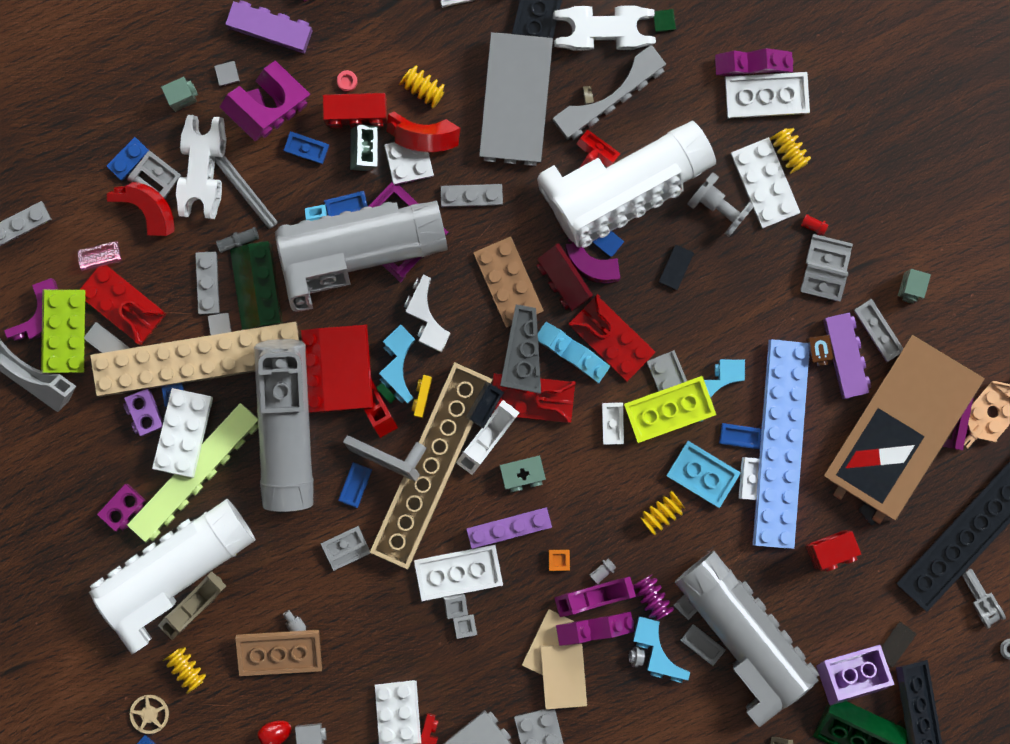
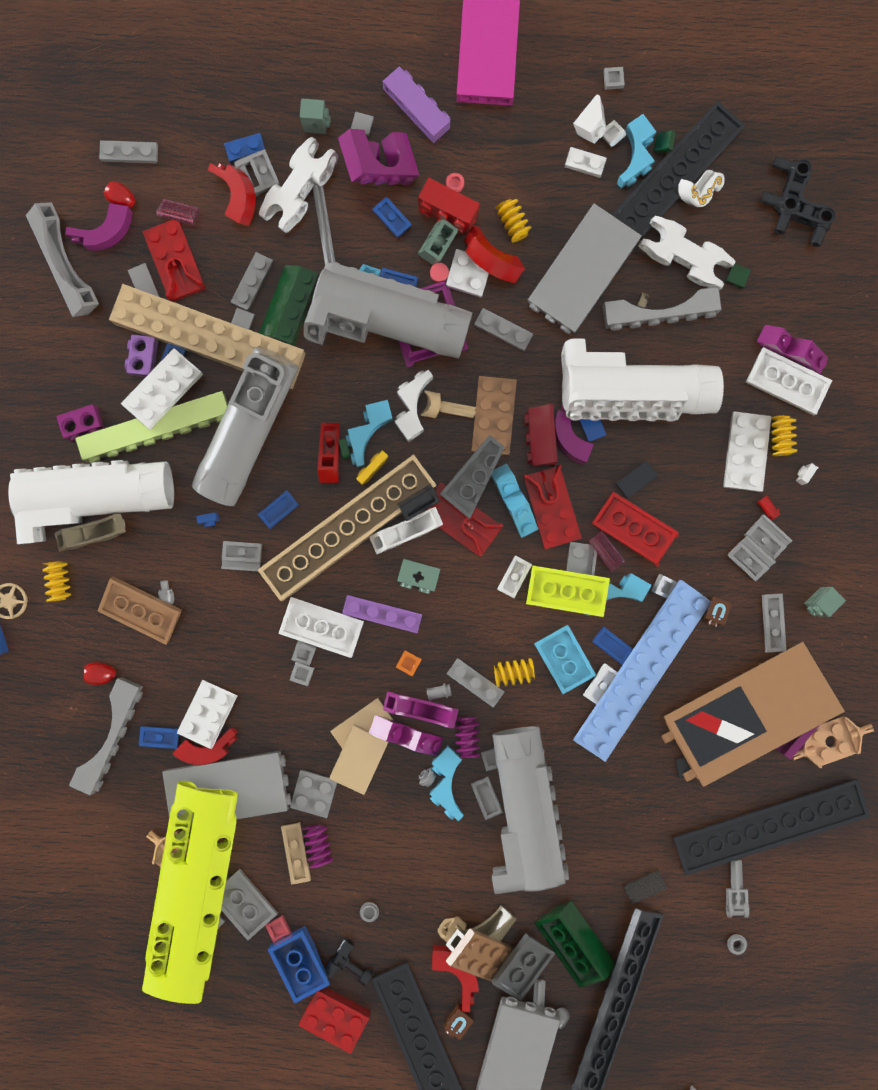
camera: 30 degrees right, 0 degrees up
(35, 271) = (119, 194): none -> red animal
(63, 331) = (113, 253): lime plate -> none
(237, 239) = (295, 260): dark grey pin -> none
(295, 531) = (208, 519): none -> blue plate
(338, 368) = (315, 406): red slope -> none
(380, 175) = (439, 272): none -> coral tile
(405, 468) = (324, 517): light grey piece -> none
(447, 303) = (435, 405): none -> tan piece
(597, 149) = (626, 345): red plate -> none
(631, 543) = (475, 682): none -> light grey plate
(685, 350) = (606, 550): none -> clear pink tile
(700, 315) = (635, 528): none -> red plate
(713, 199) = (698, 440): light grey piece -> none
(757, 353) = (663, 586): none -> light grey plate
(831, 173) = (806, 473): none -> white plate
(833, 550) = (638, 782): red brick -> none
(846, 355) = (735, 632): medium lavender brick -> none
(855, 675) = (598, 895): medium lavender brick -> none

